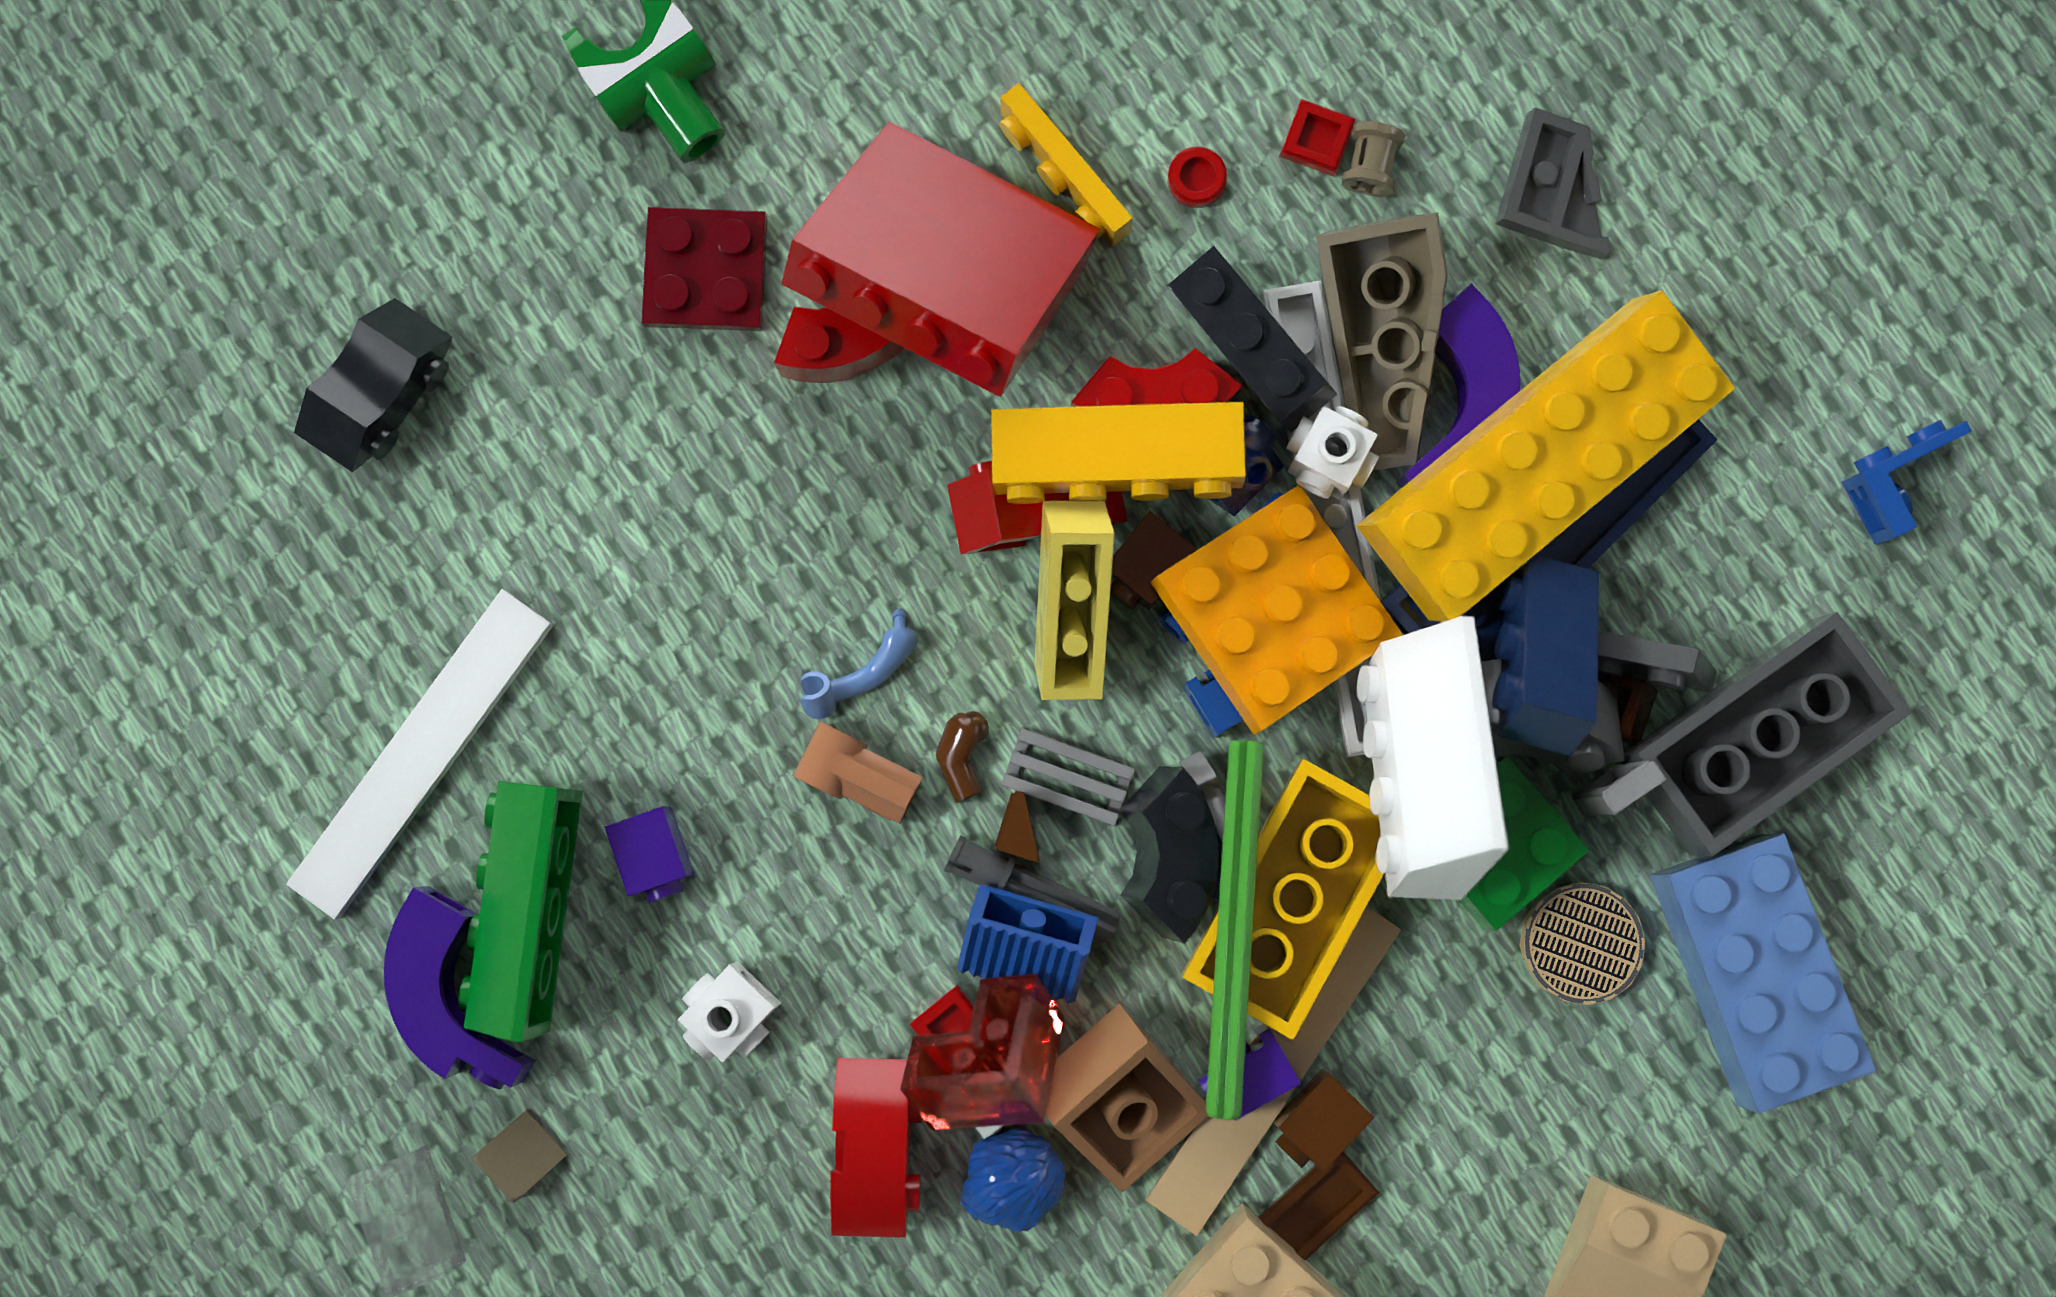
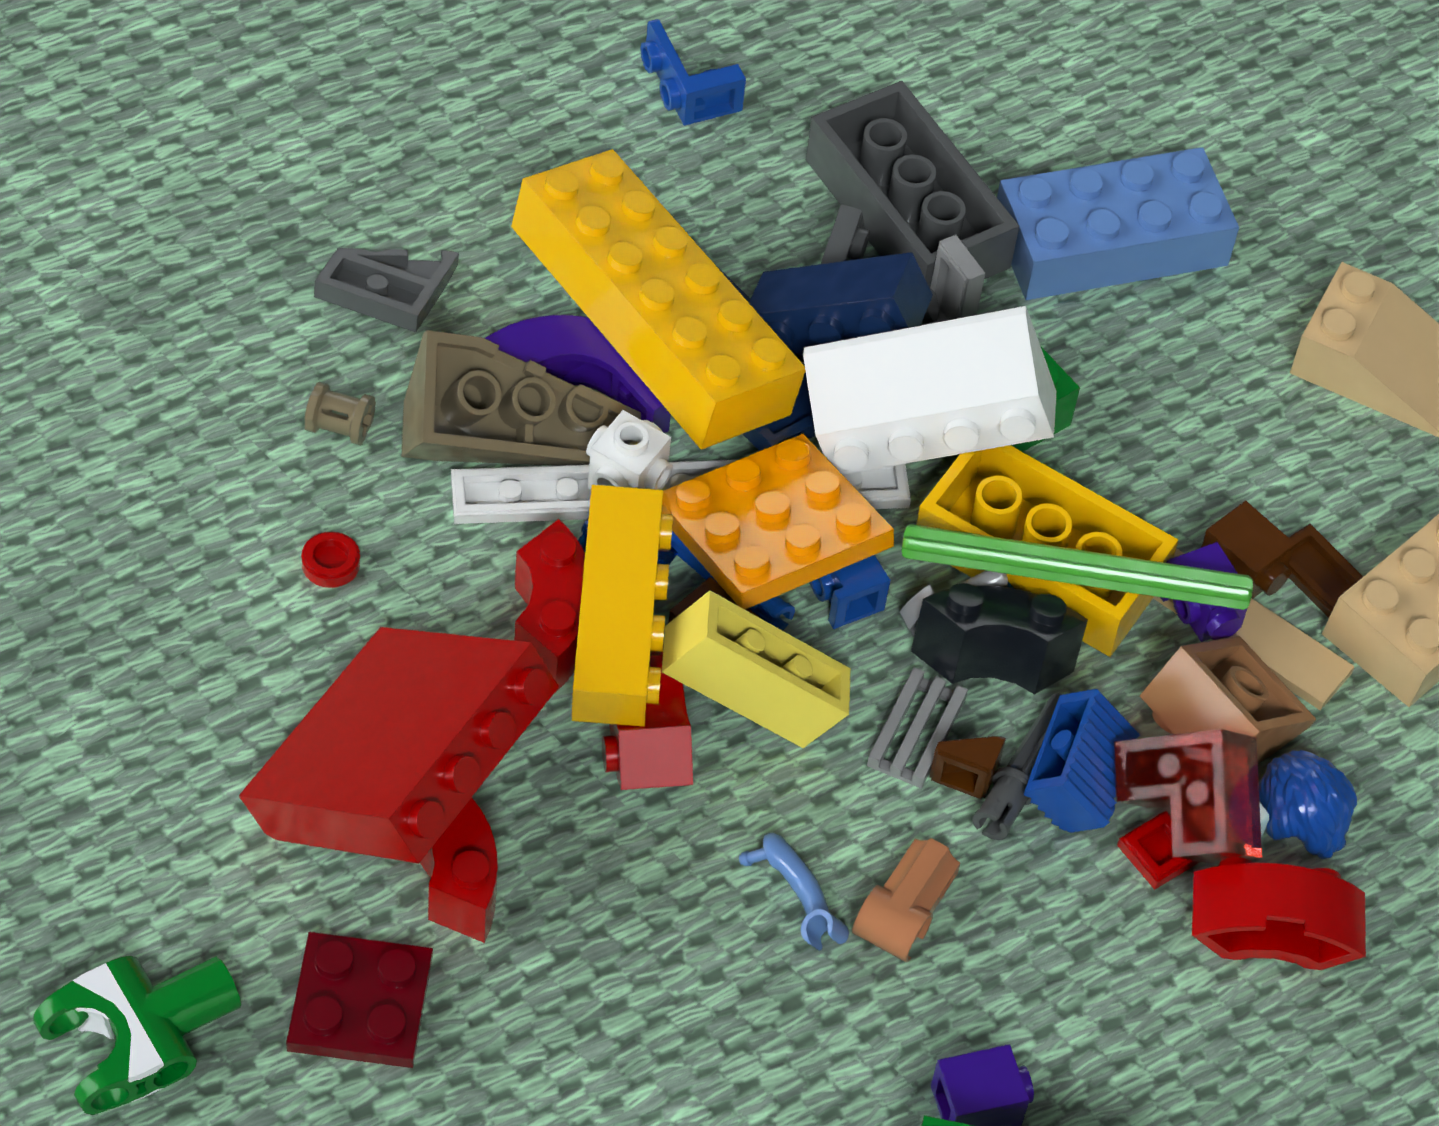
camera: 95 degrees left, 30 degrees down
(744, 998) = (1147, 1028): white brick -> none
(955, 750) = (888, 817): reddish brown arm -> none
(1062, 165) = (302, 660): yellow plate -> none
(1251, 339) = (507, 513): black brick -> none
(1317, 137) = (307, 459): red tile -> none
(1582, 943) = (1092, 348): tile -> none

